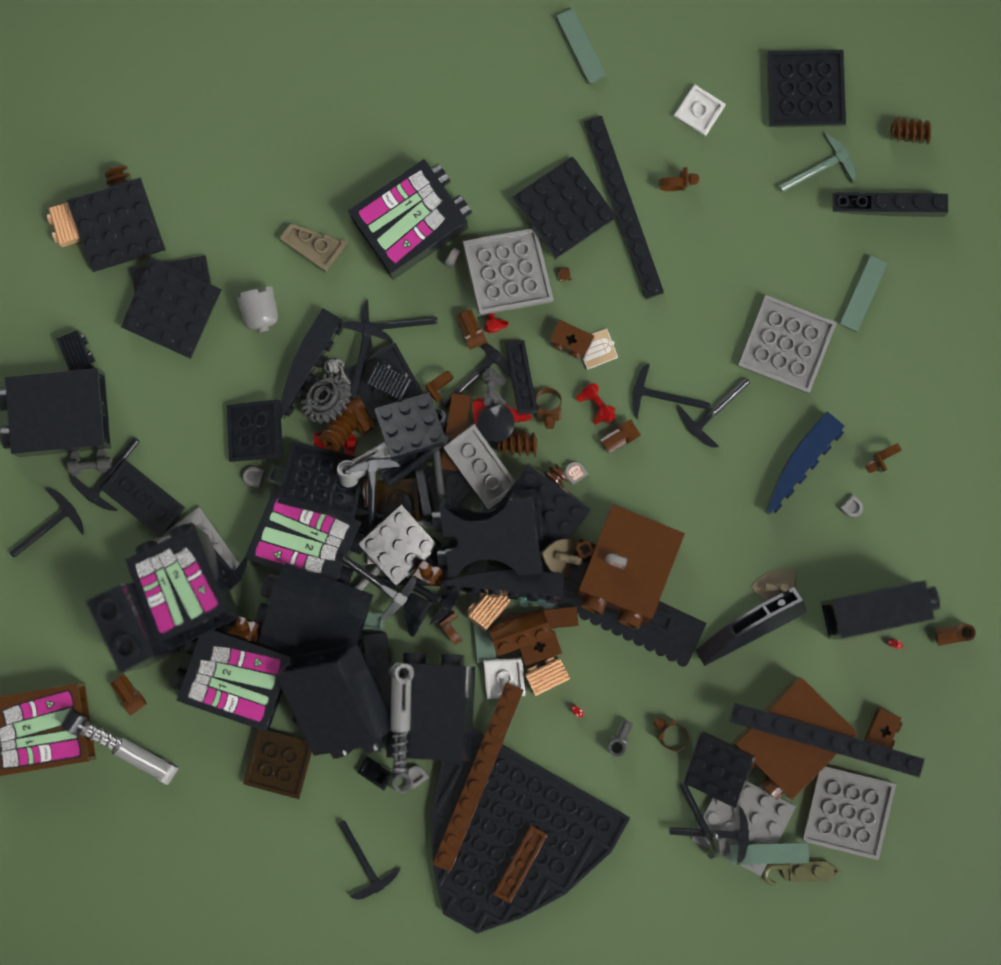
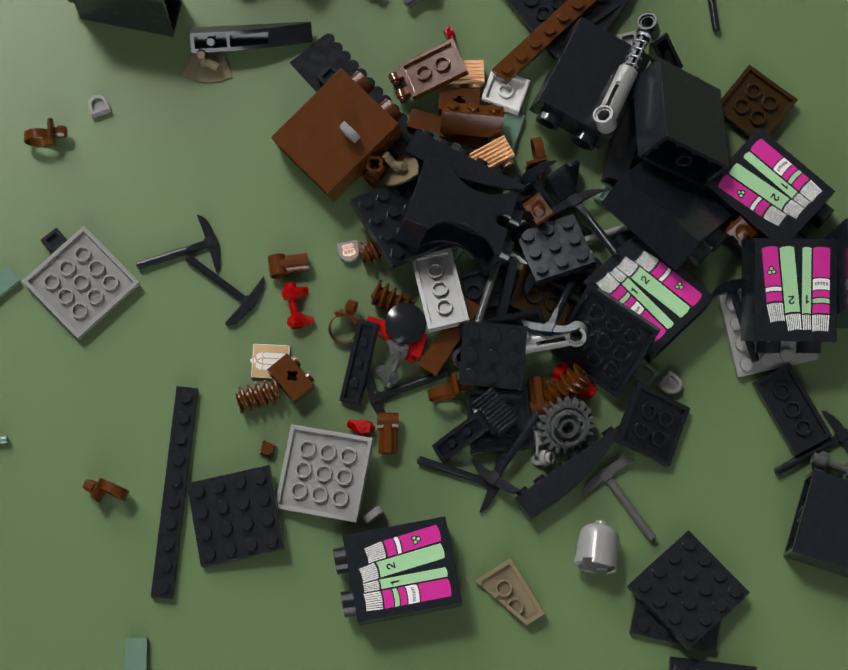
camera: 160 degrees left, 10 degrees down
(75, 351) = (806, 587): black brick -> none
(276, 375) = (606, 475): none -> dark grey piece
(408, 350) = (461, 436): none -> black tile
(577, 663) = (429, 71): none -> reddish brown tile
(592, 312) = (257, 395): none -> reddish brown piece
(699, 110) = (47, 557): white tile -> none
(804, 457) = (122, 167): dark blue slope -> none
(828, 370) = (53, 240): none -> black tile

